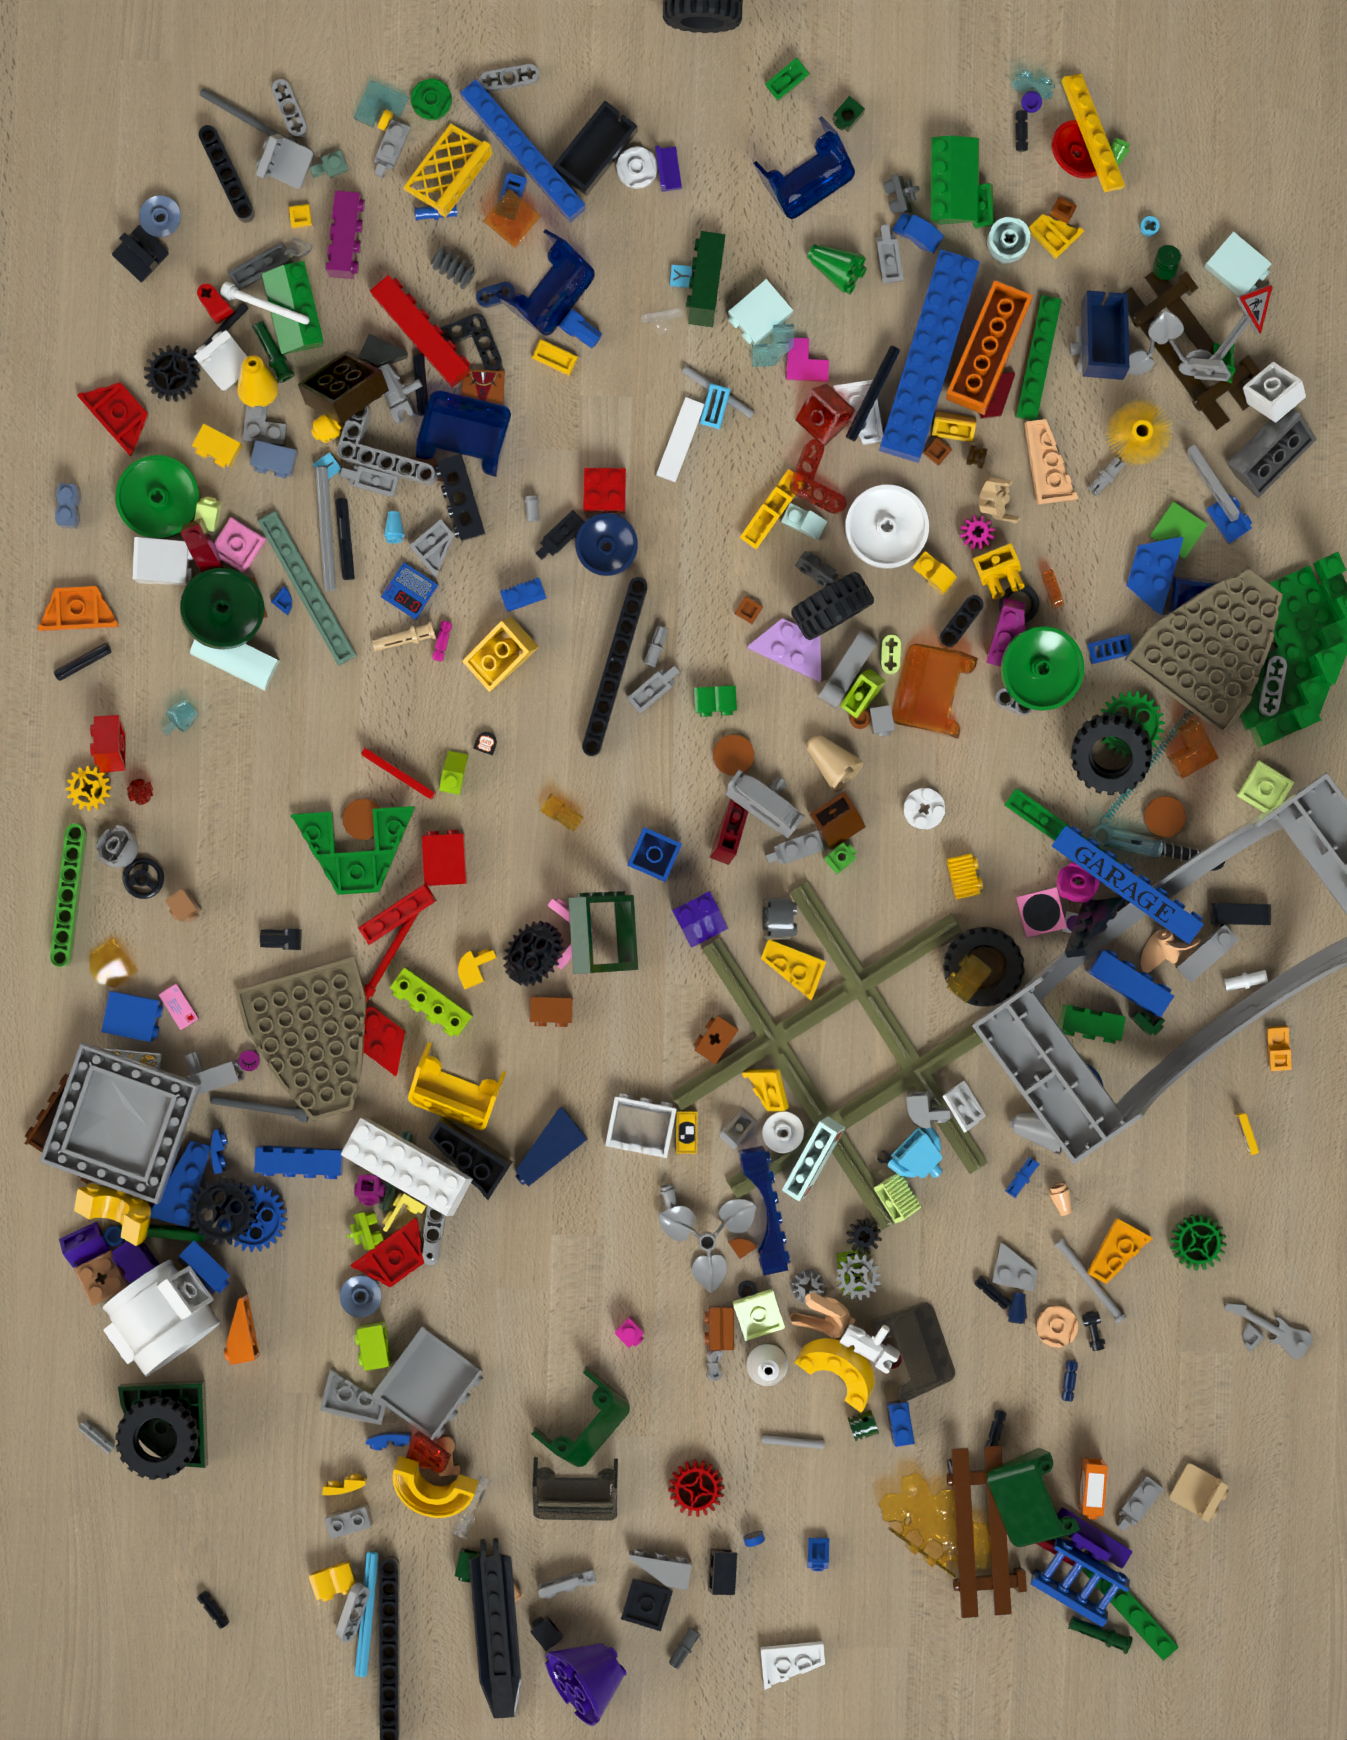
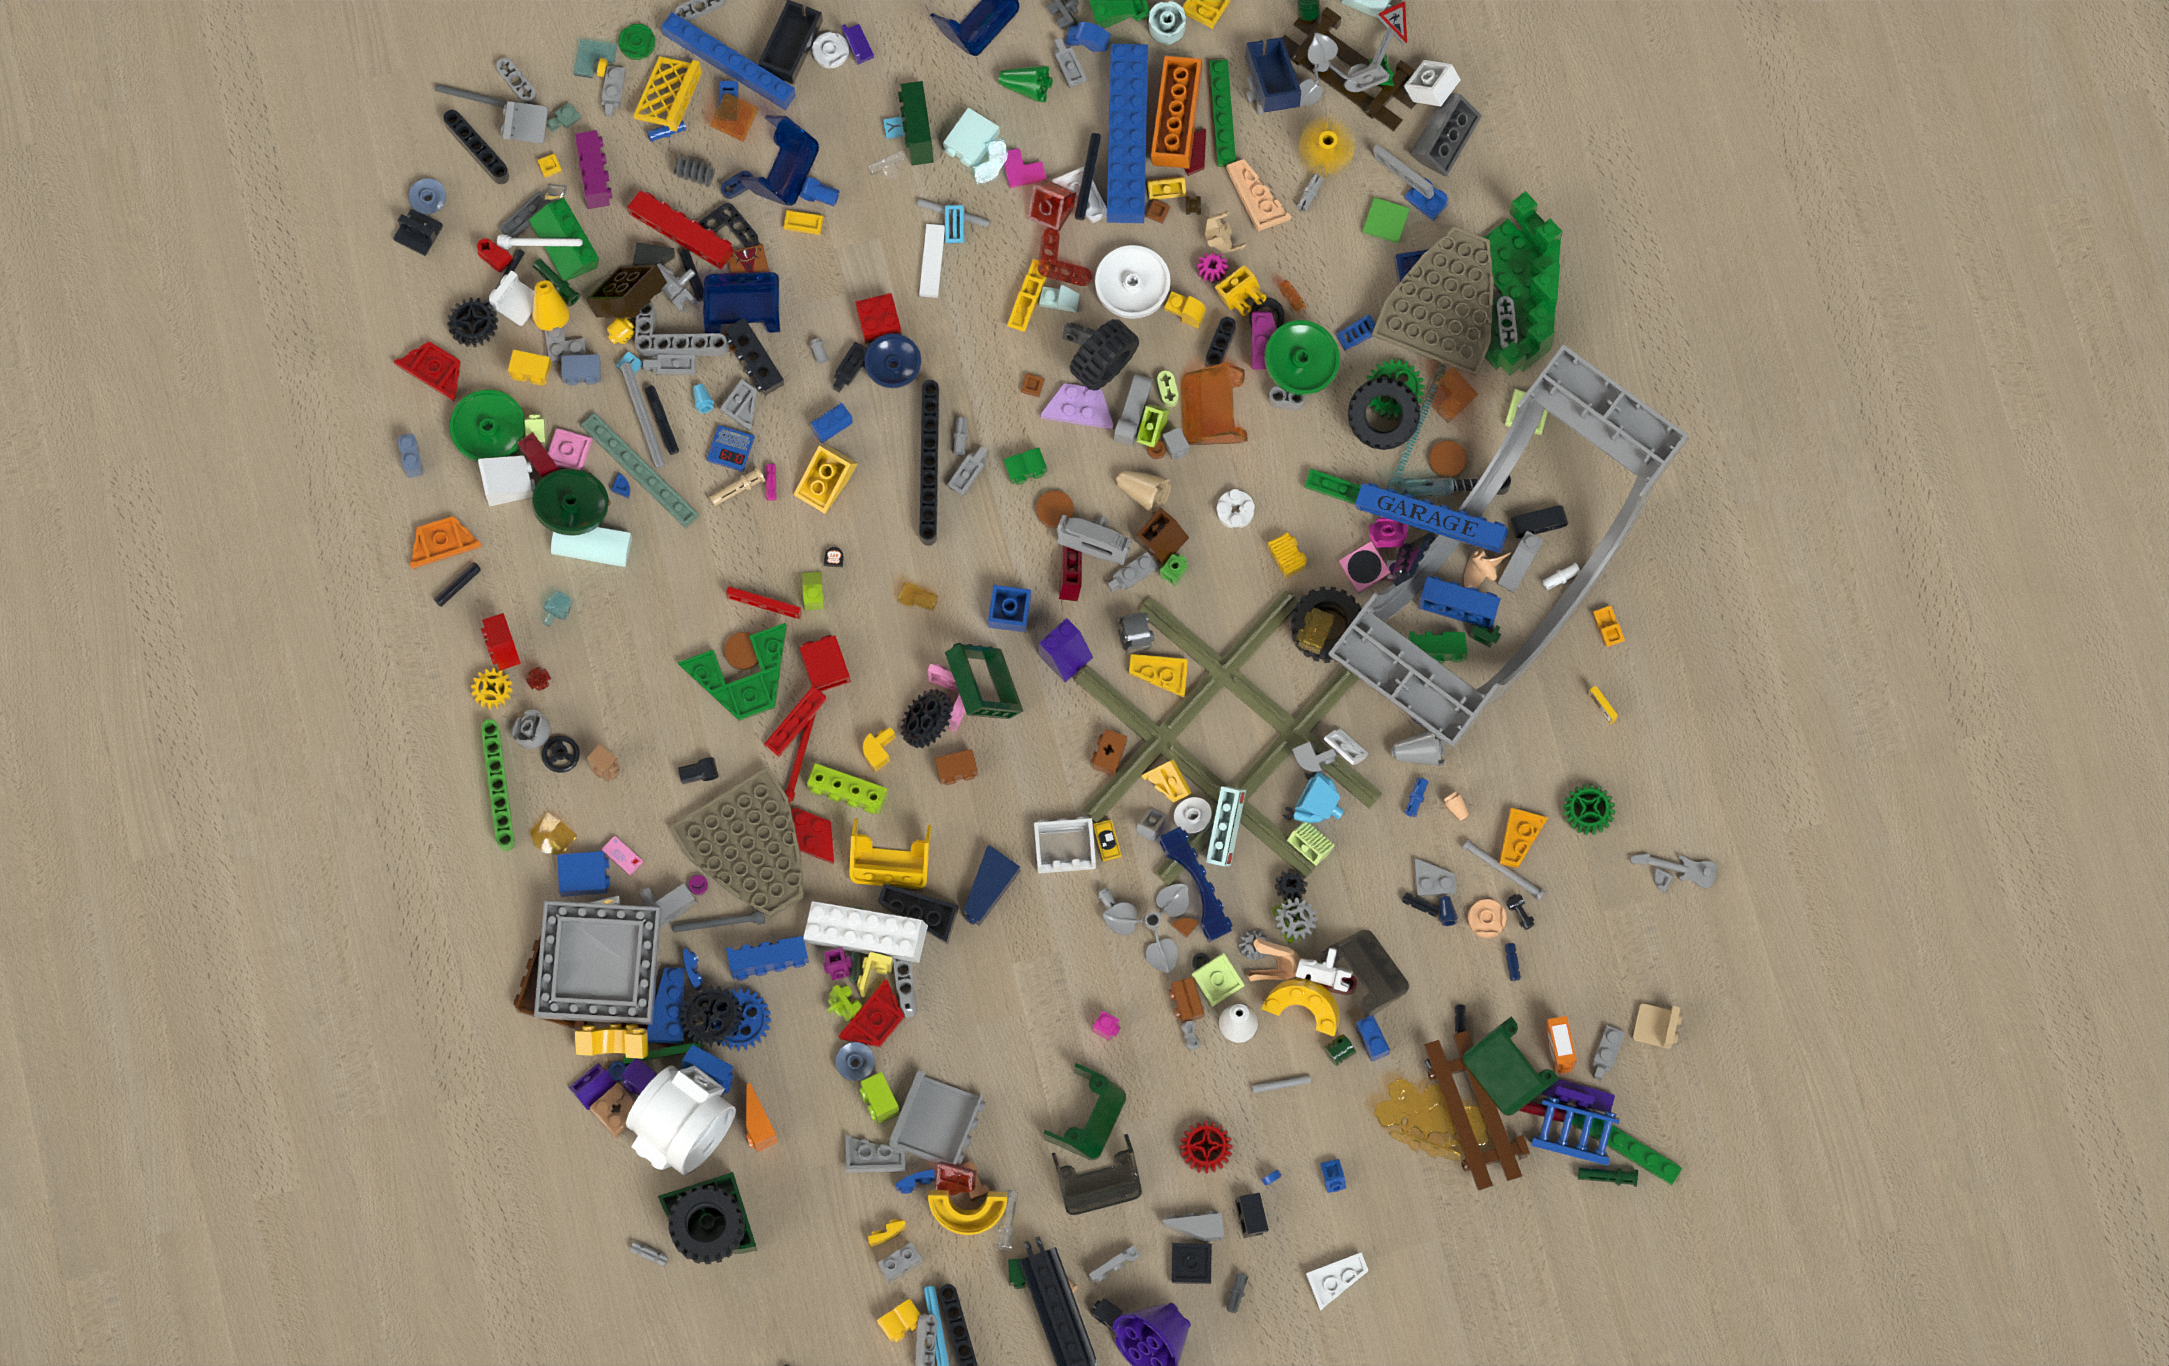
camera: 15 degrees left, 15 degrees down
(1154, 571) = (1375, 258): blue wing -> none

